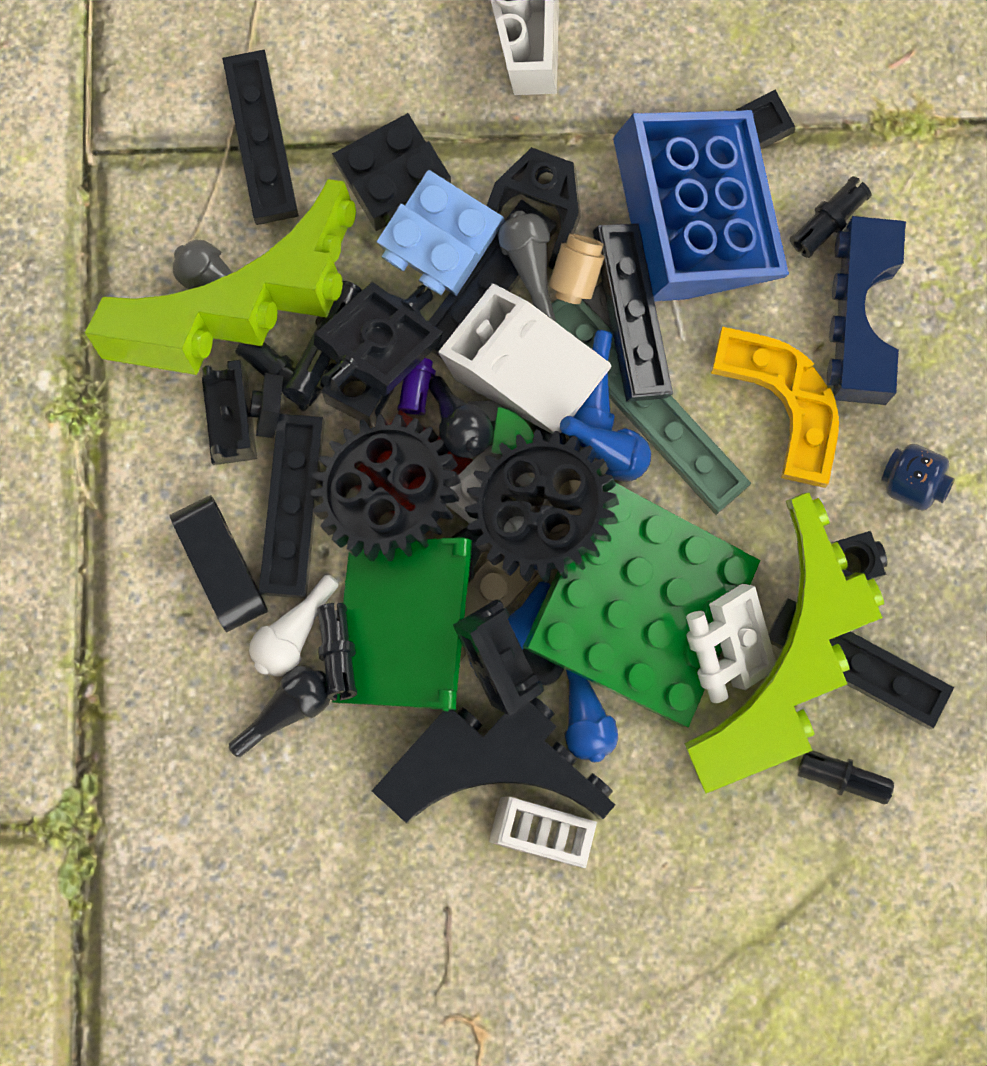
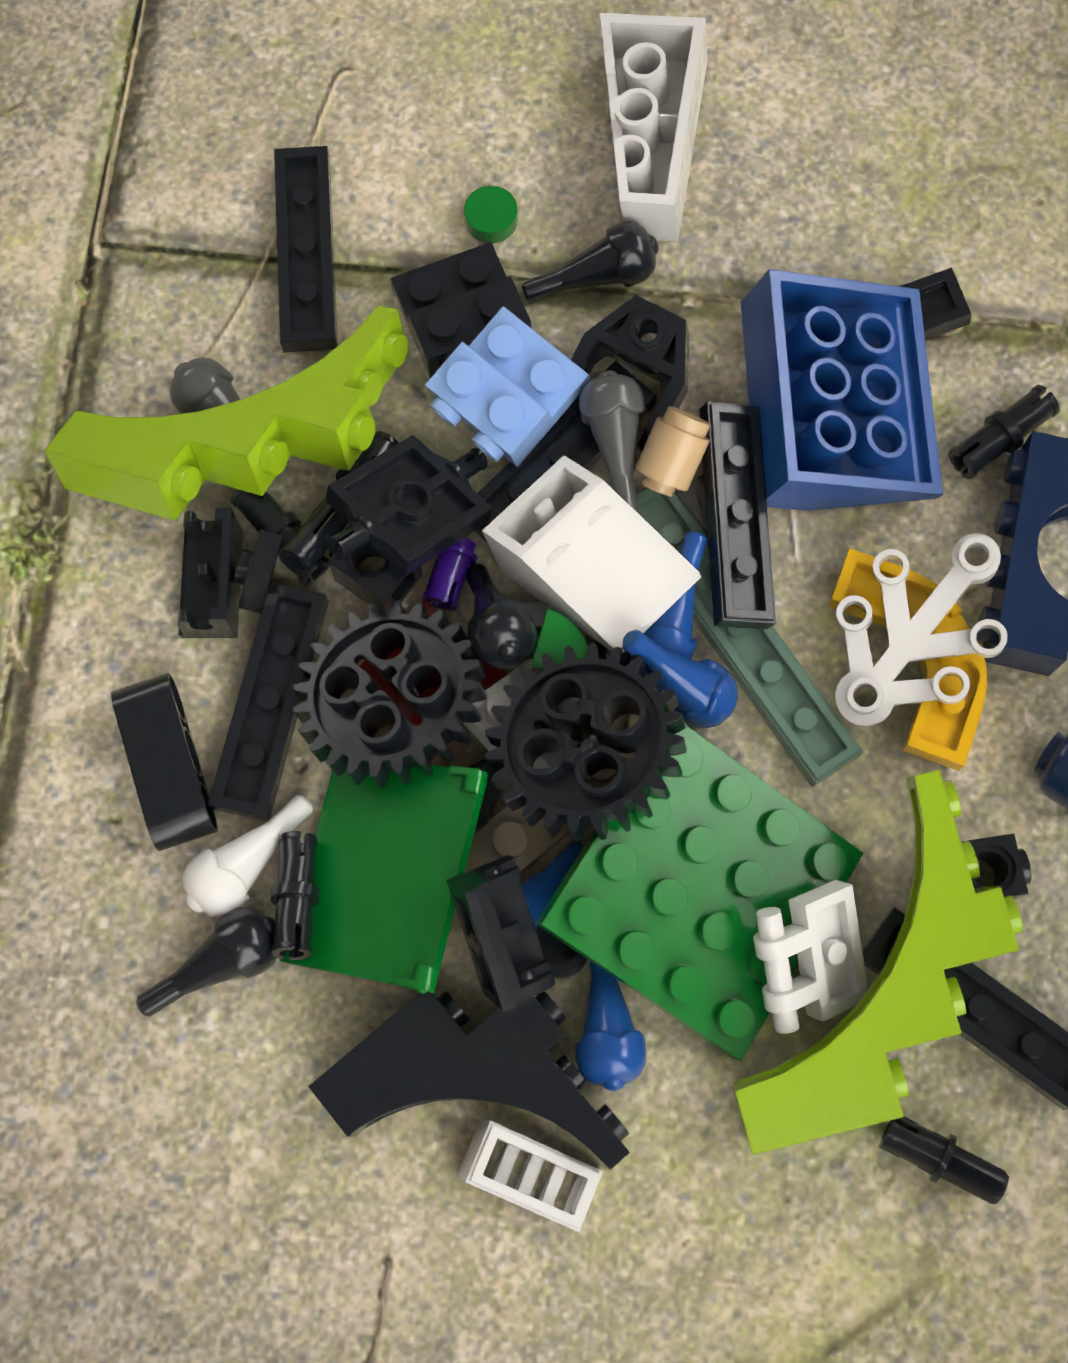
camera: 10 degrees right, 5 degrees down
(404, 89) = (491, 214): none -> green tile
(513, 113) = (622, 256): none -> black piece
(778, 392) = (912, 638): none -> white plant

